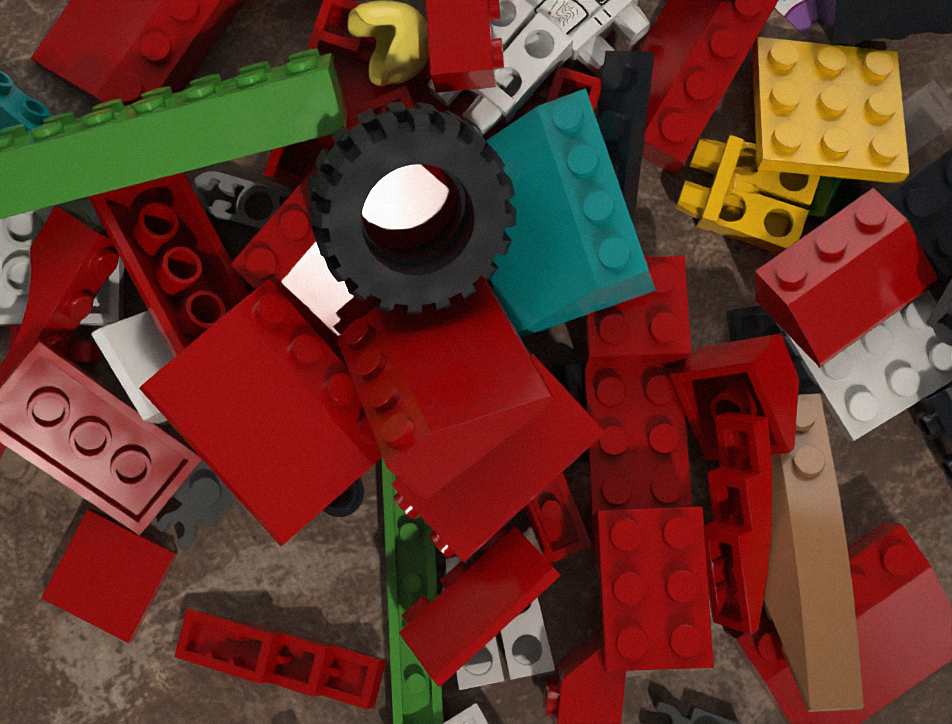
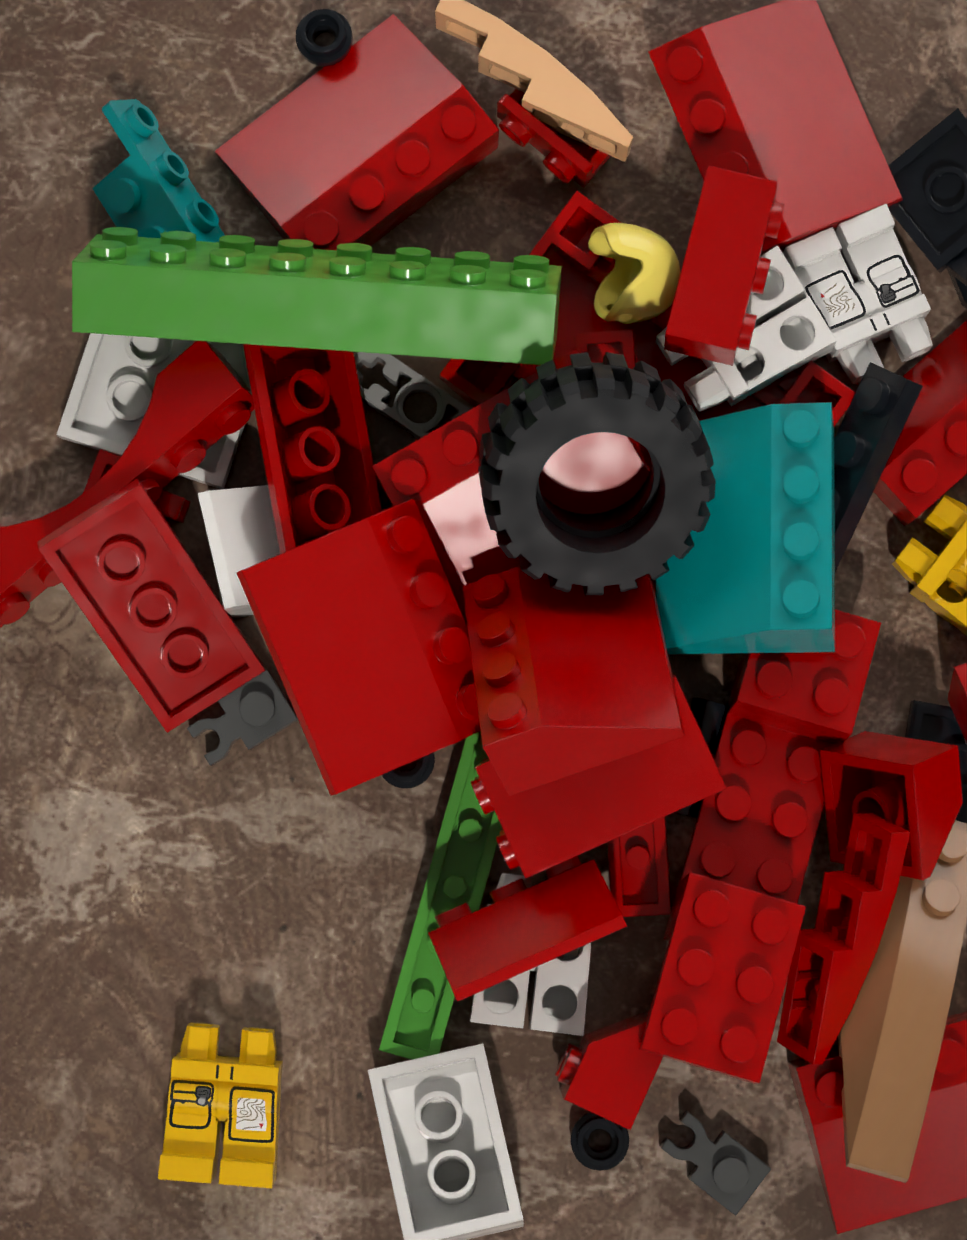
camera: 15 degrees right, 0 degrees up
(109, 575) = (118, 766): red tile -> none
(280, 658) = (279, 922): red slope -> none

